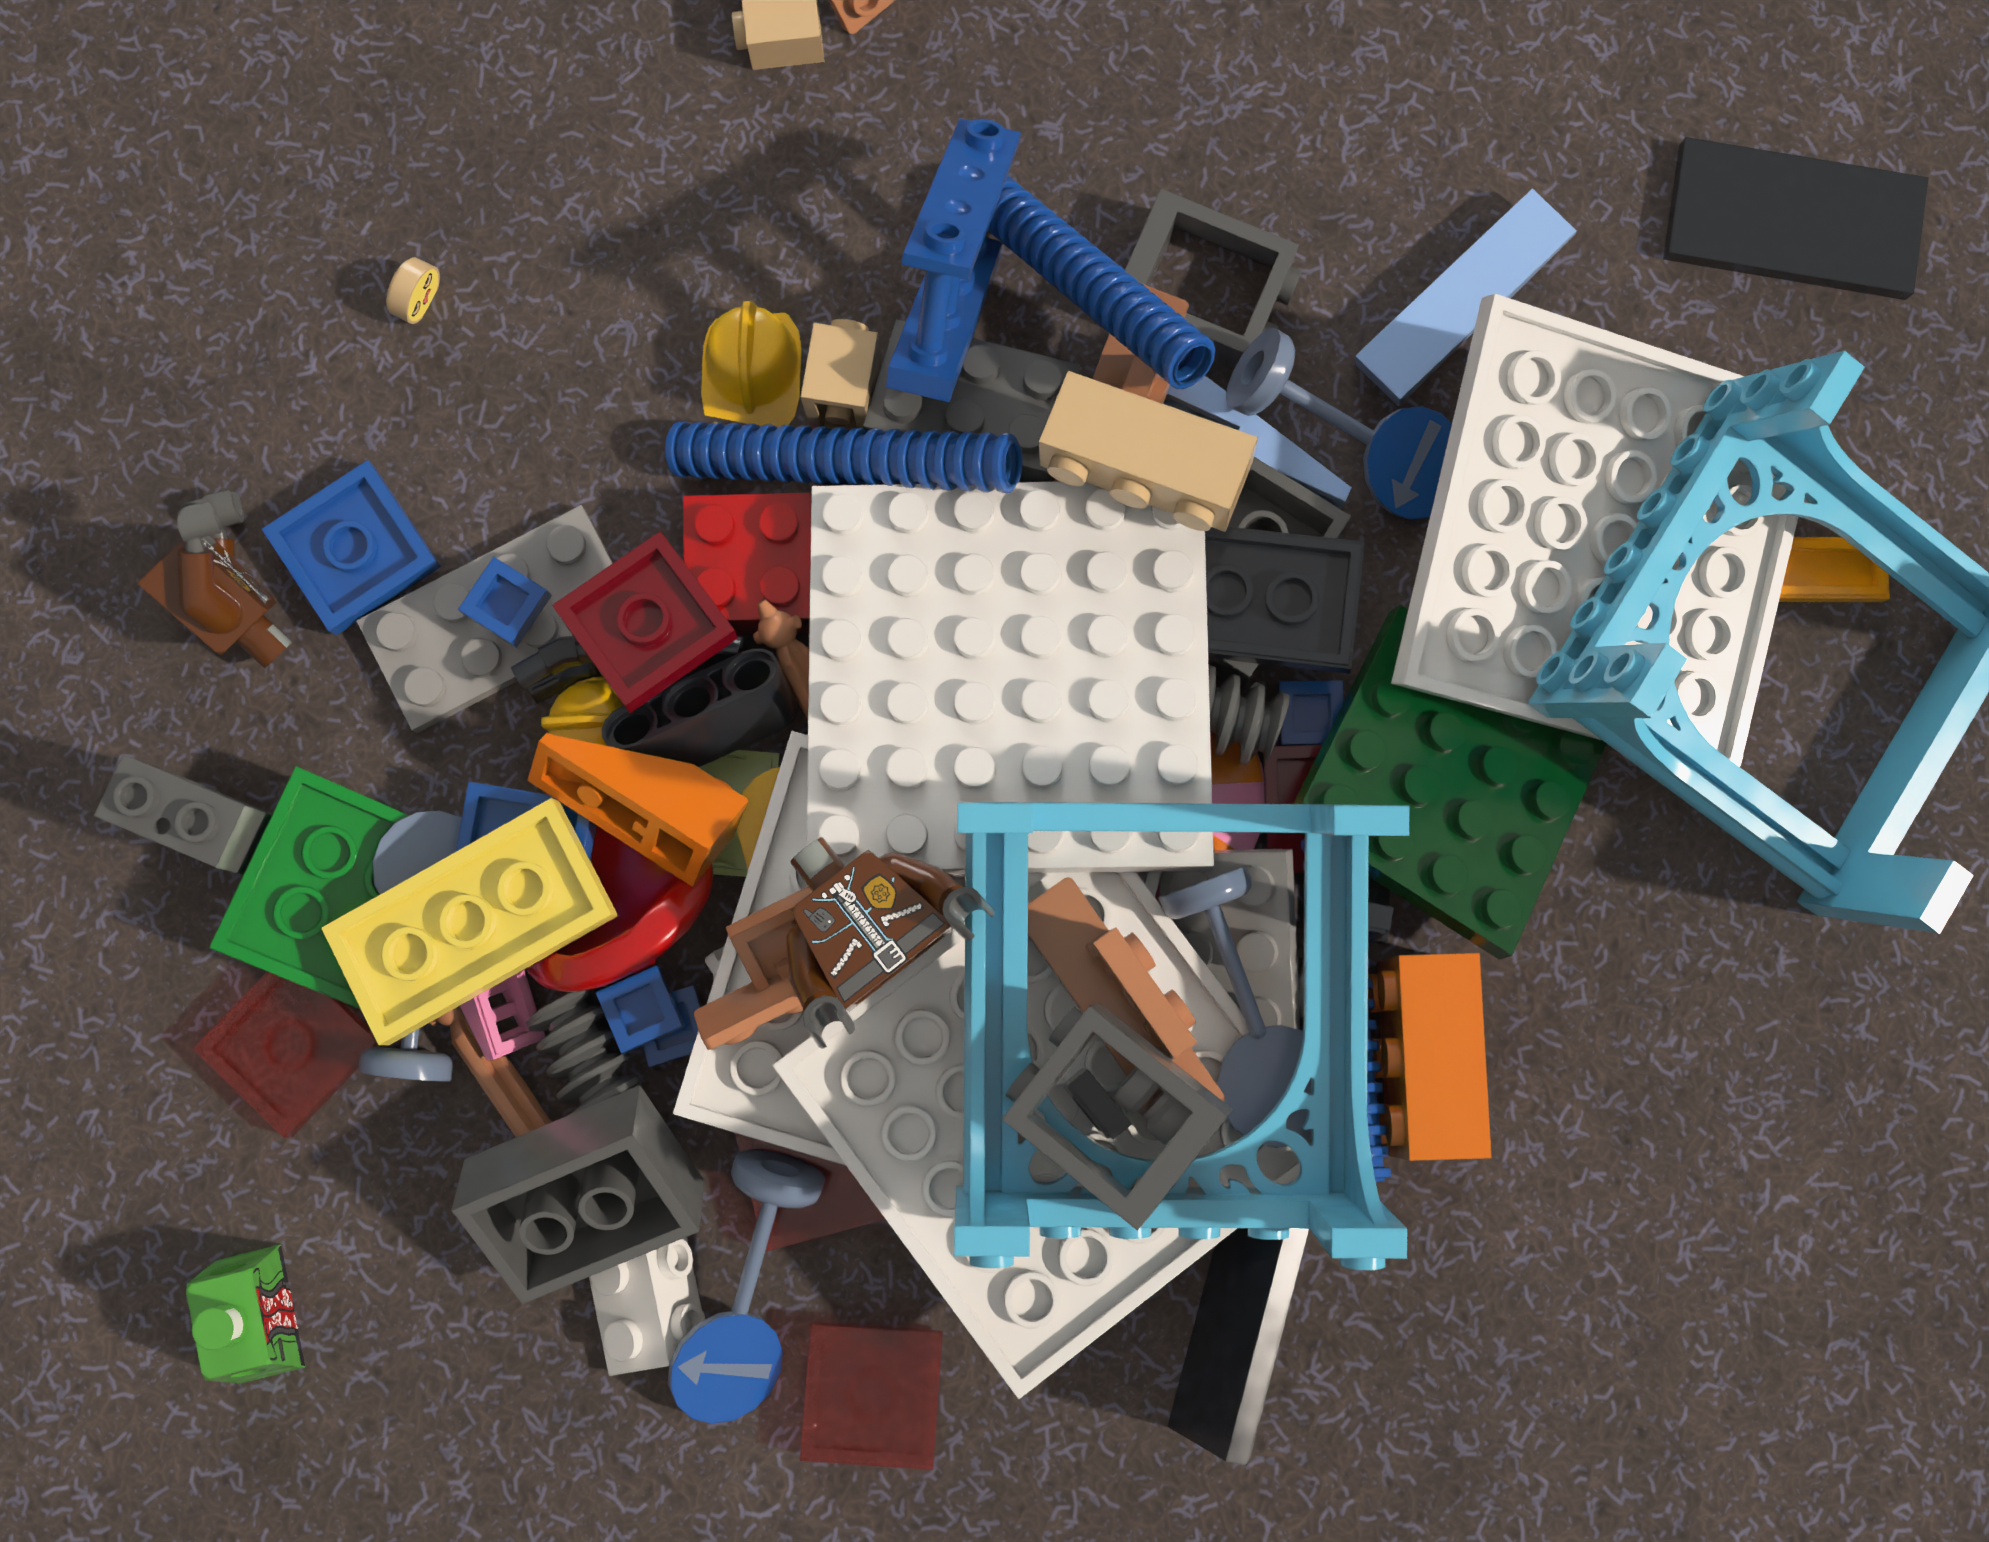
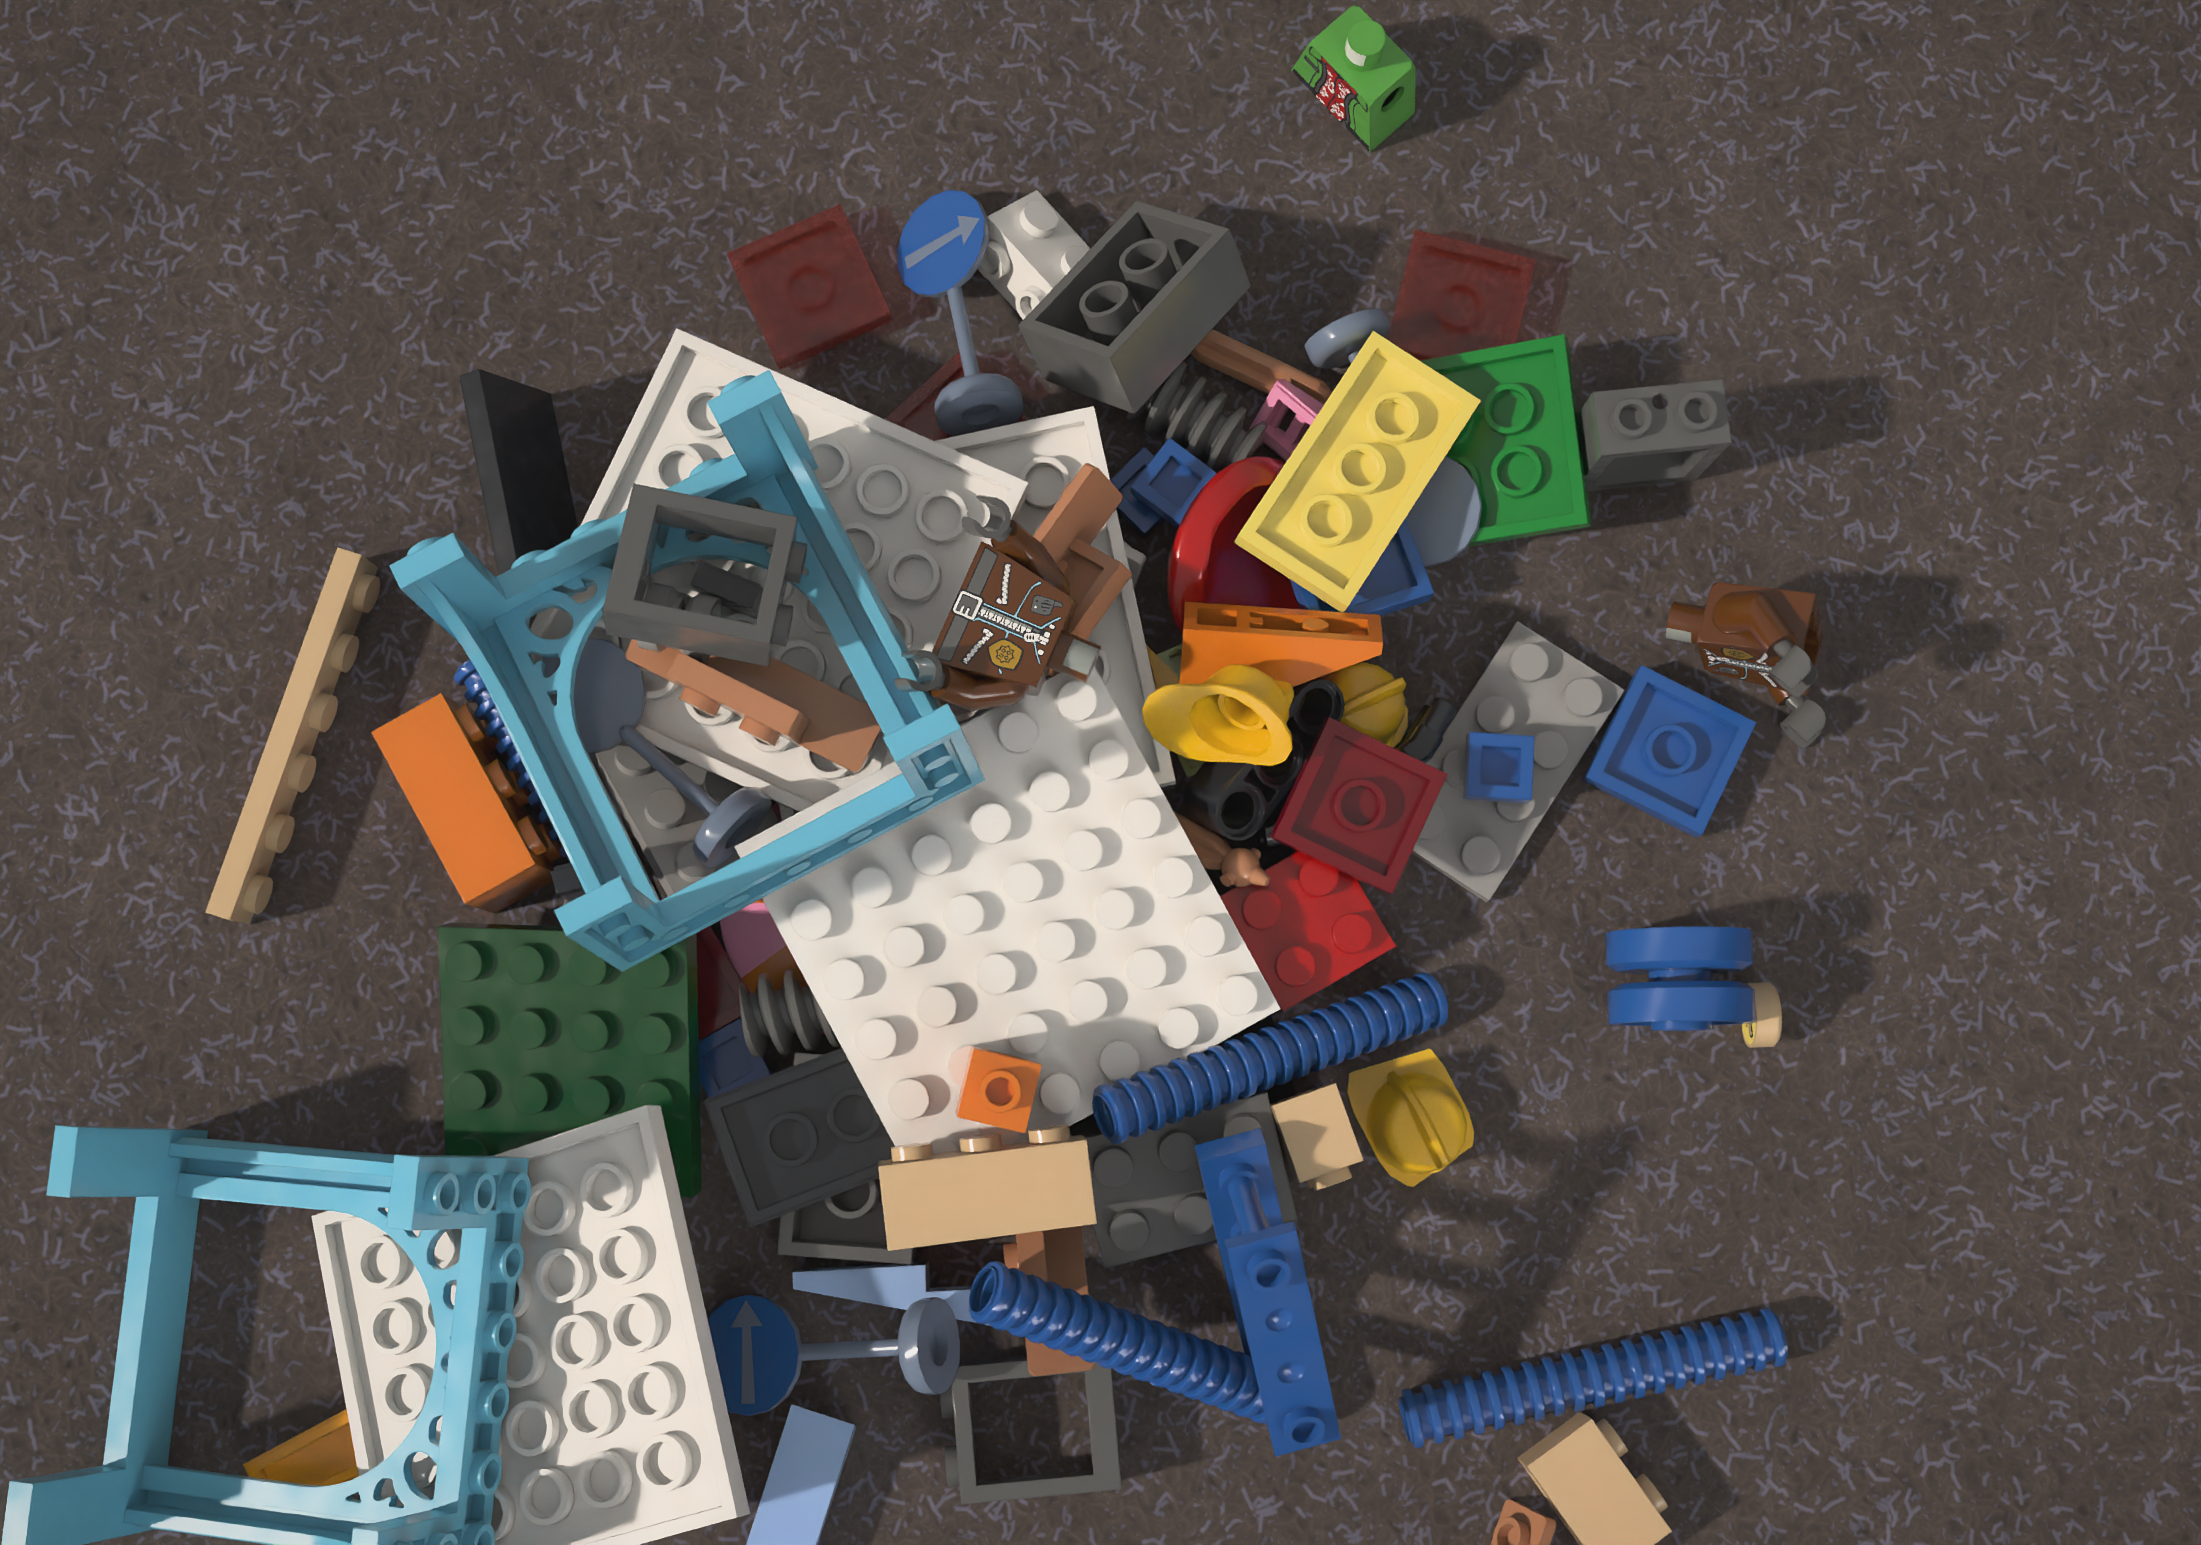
camera: 150 degrees right, 0 degrees up
(460, 344) = (1680, 977): none -> blue wheel
(712, 750) = (1227, 718): none -> yellow piece
(725, 83) = (1594, 1377): none -> blue piece
(1091, 527) = (998, 1089): none -> orange brick
(1578, 1194) = (287, 757): none -> tan plate

